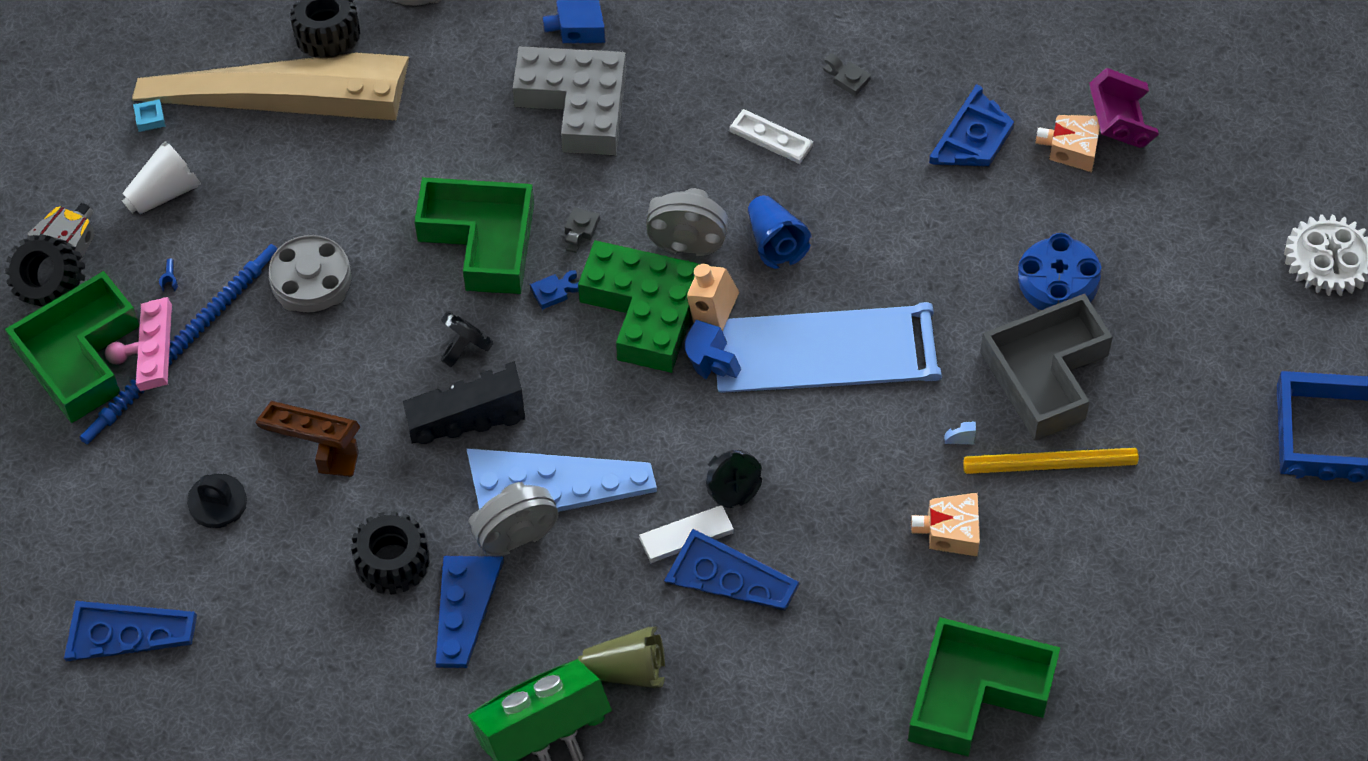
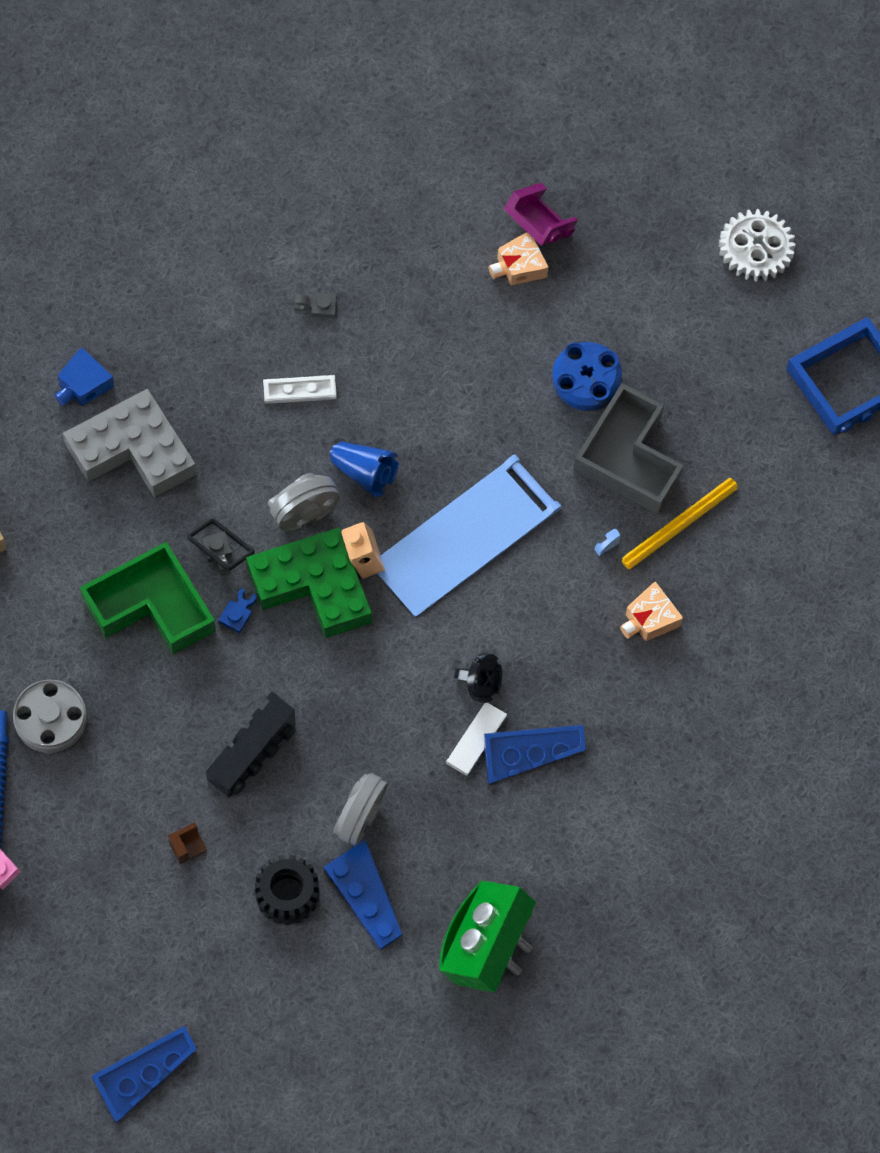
camera: 40 degrees left, 10 degrees up
(216, 500) = (125, 933): black tile -> none
(308, 424) = (150, 834): reddish brown tile -> none
(465, 333) = (207, 696): black tile -> none
(561, 196) = (210, 554): none -> black piece
(569, 479) = (330, 775): light blue wing -> none
(628, 659) = (511, 858): olive cone -> none
(706, 351) = (386, 594): blue brick -> none
(974, 133) = (445, 297): blue wing -> none
(975, 668) = (740, 718): green piece -> none

